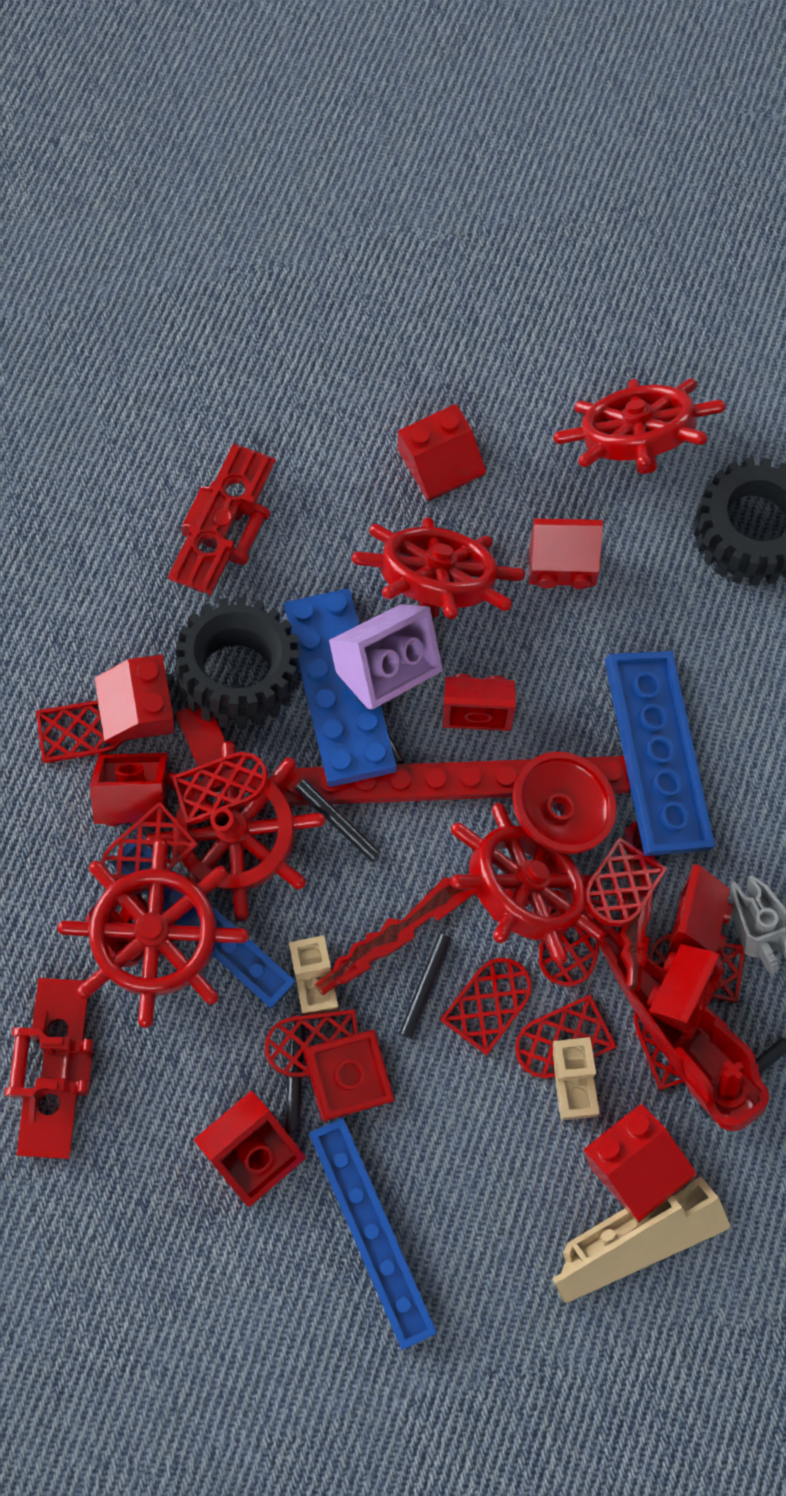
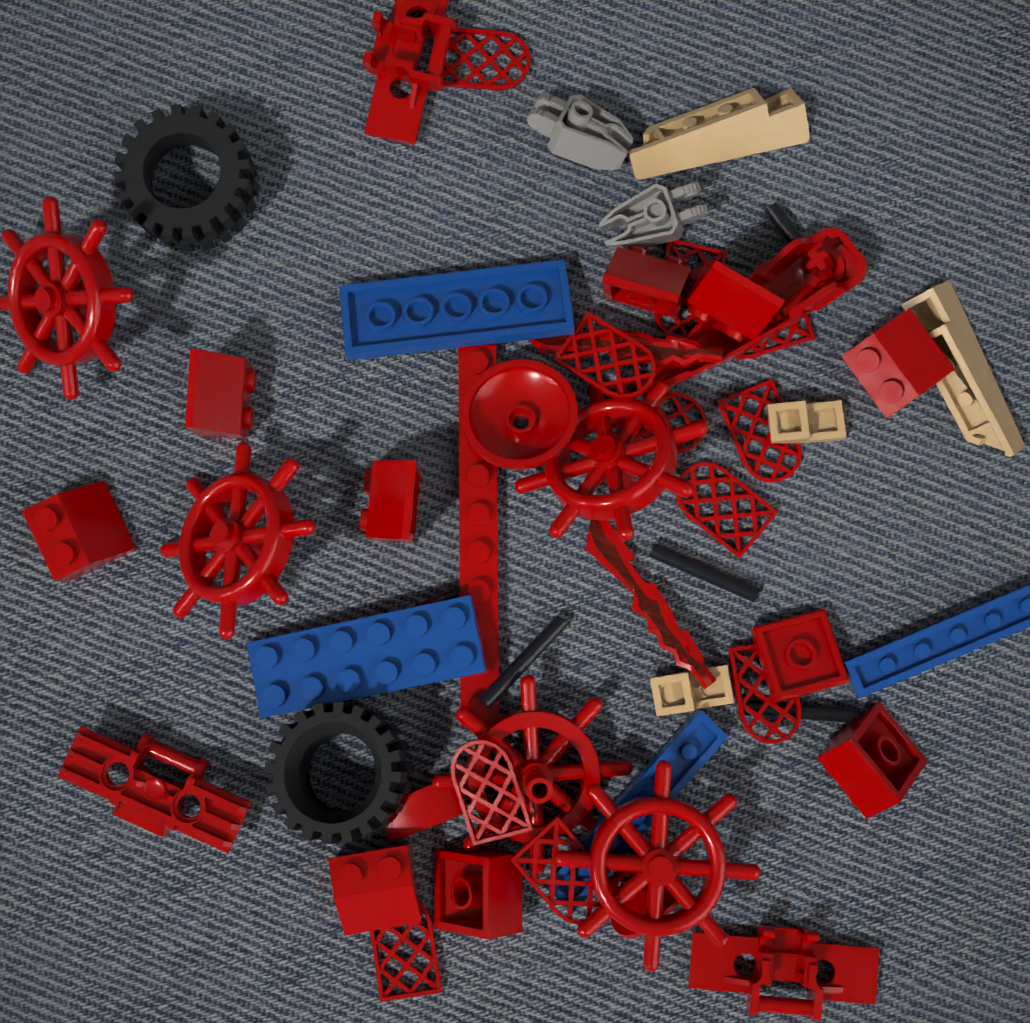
camera: 90 degrees left, 15 degrees up
(387, 654) = (339, 602): lavender slope -> none

